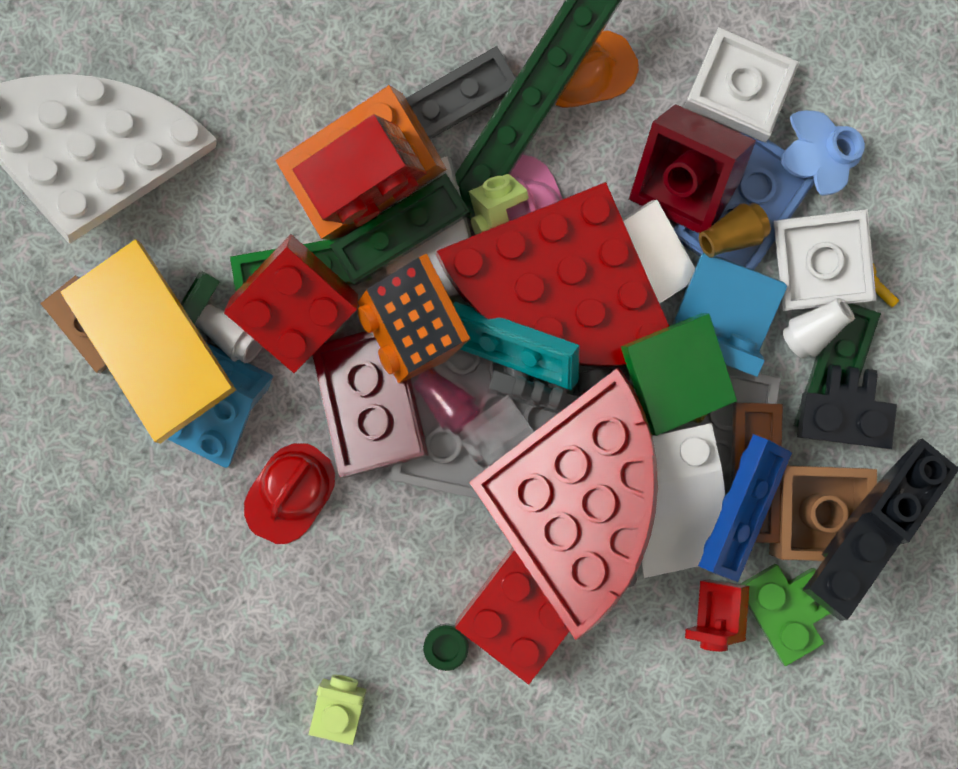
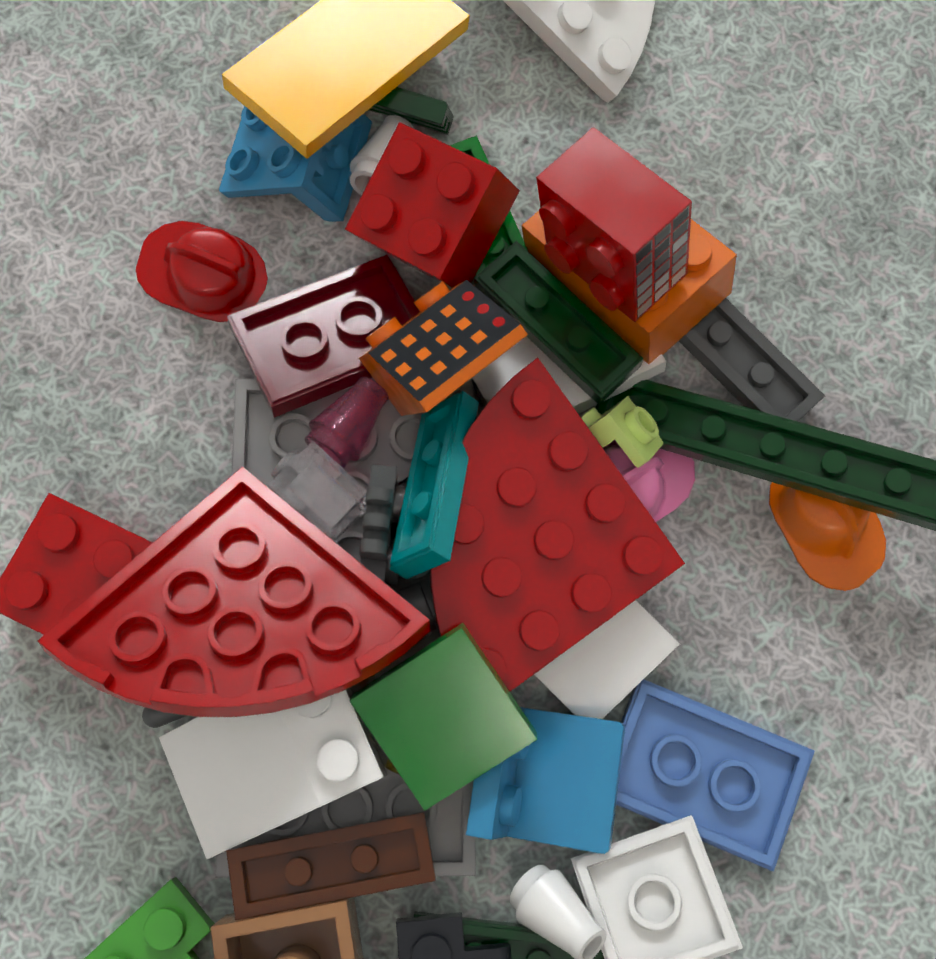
camera: 75 degrees right, 10 degrees down
(445, 647) = (26, 493): dark green tile -> none
(691, 167) = (735, 682): dark red slope -> none
(720, 615) = (124, 860): red bracket -> none
(737, 230) = (665, 763): pearl gold cone -> none
(742, 85) = (866, 732): white tile -> none
(745, 508) = (270, 854): blue plate -> none
(818, 153) = (804, 860): light blue plate -> none

